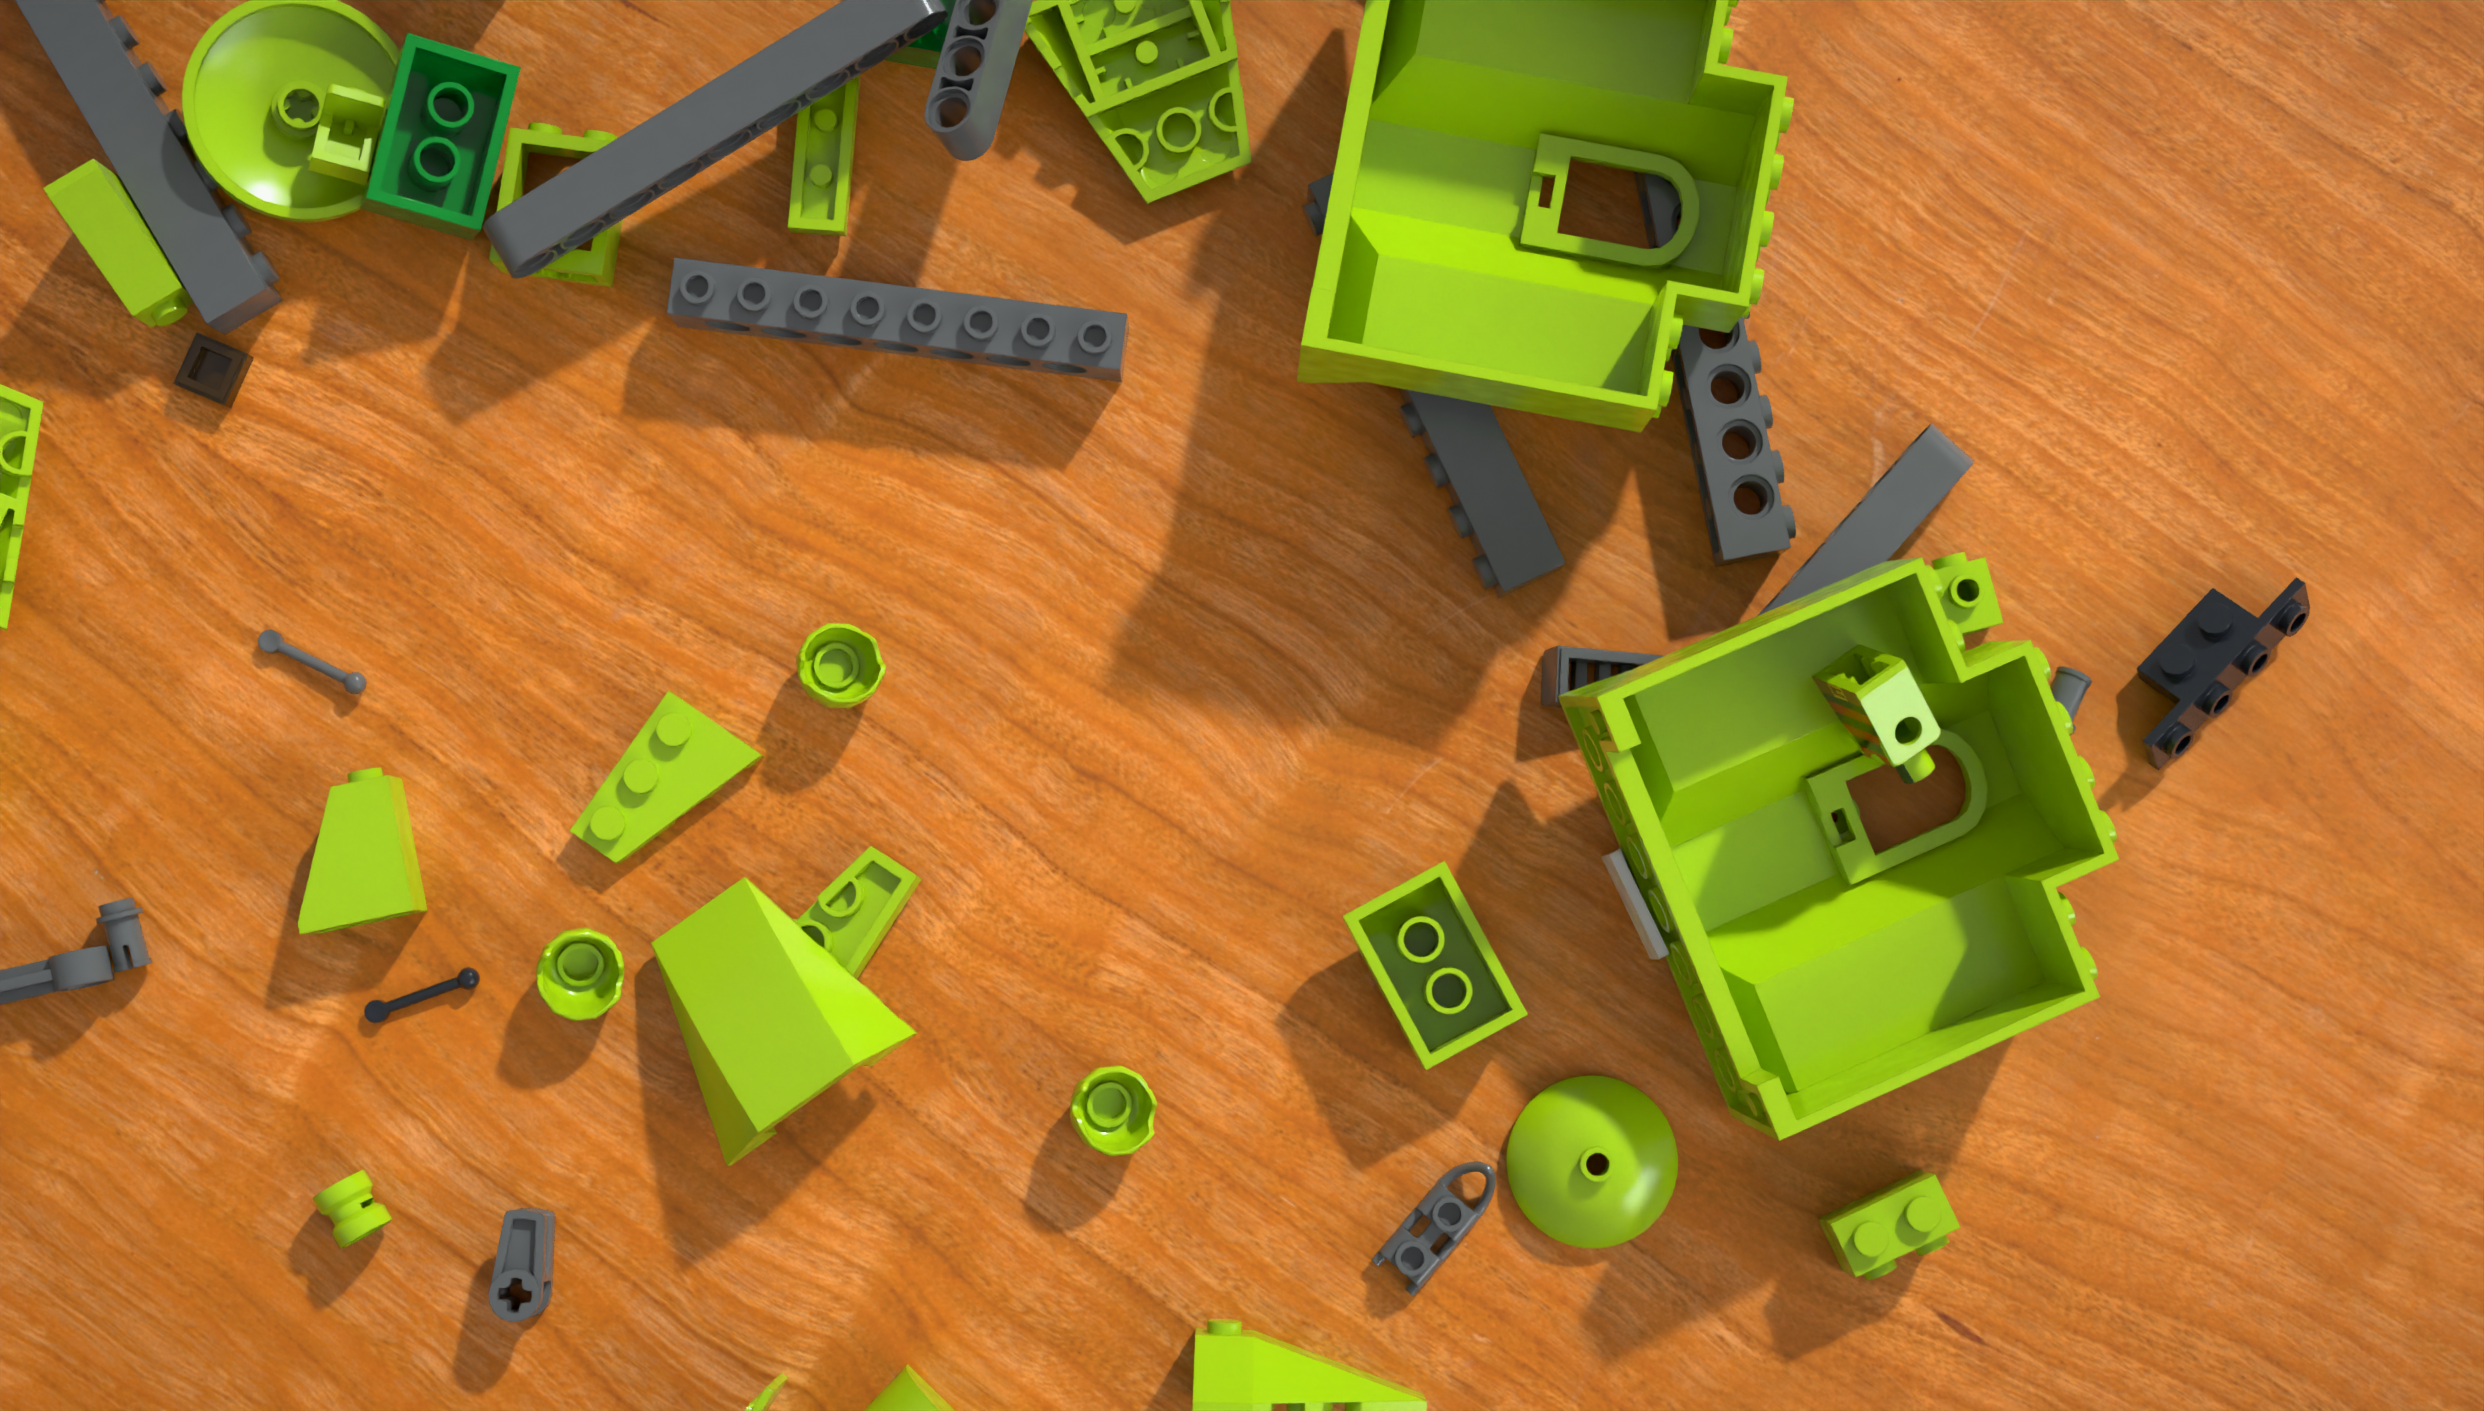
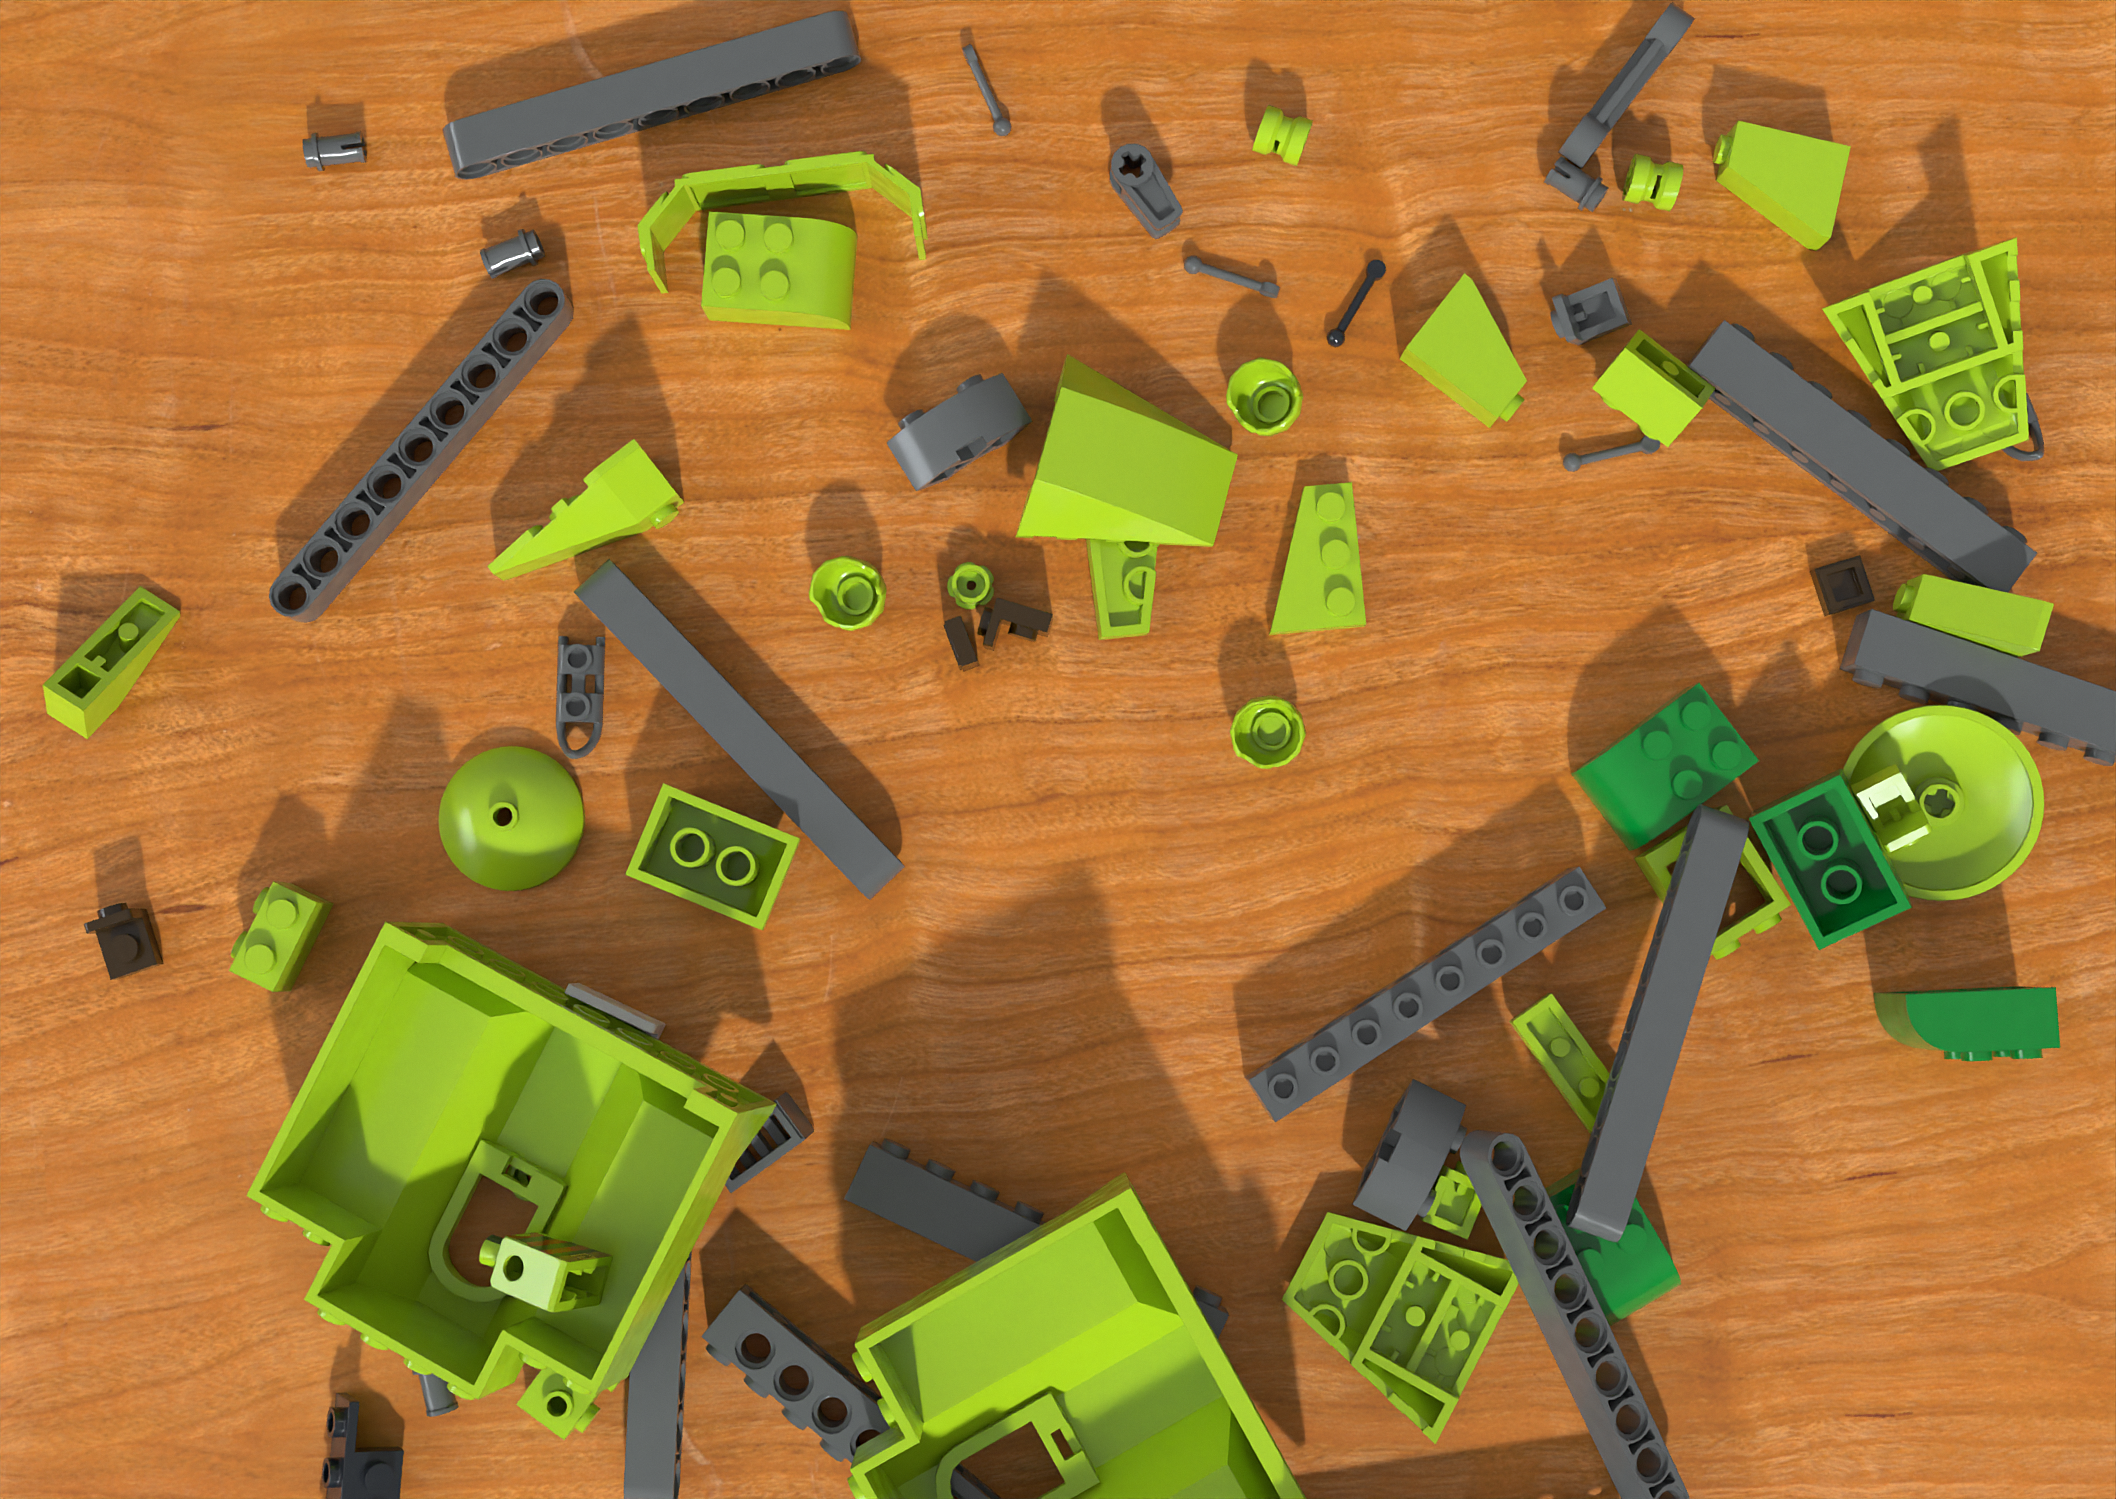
camera: 145 degrees right, 0 degrees up
(53, 877) = (1652, 182): none -> lime wheel
(100, 470) = (1858, 462): none -> dark grey brick
(217, 804) = (1590, 312): none -> dark grey bracket
(223, 685) = (1653, 388): none -> lime brick
(513, 340) = (1665, 767): none -> green brick
(539, 1156) = (1194, 265): none -> dark grey hinge
(887, 1179) = (958, 430): none -> dark grey brick
(976, 951) = (1023, 622): none -> dark brown bracket
(980, 1026) = (967, 573): none -> lime plate
(1030, 122) = (1455, 1202): none -> lime bracket
(1032, 190) = (1410, 1155): none -> dark grey brick
(1050, 978) = (960, 644): none -> dark brown tile
(1317, 1071) = (739, 729): none -> dark grey beam
(2035, 1340) = (125, 940): none -> dark brown bracket

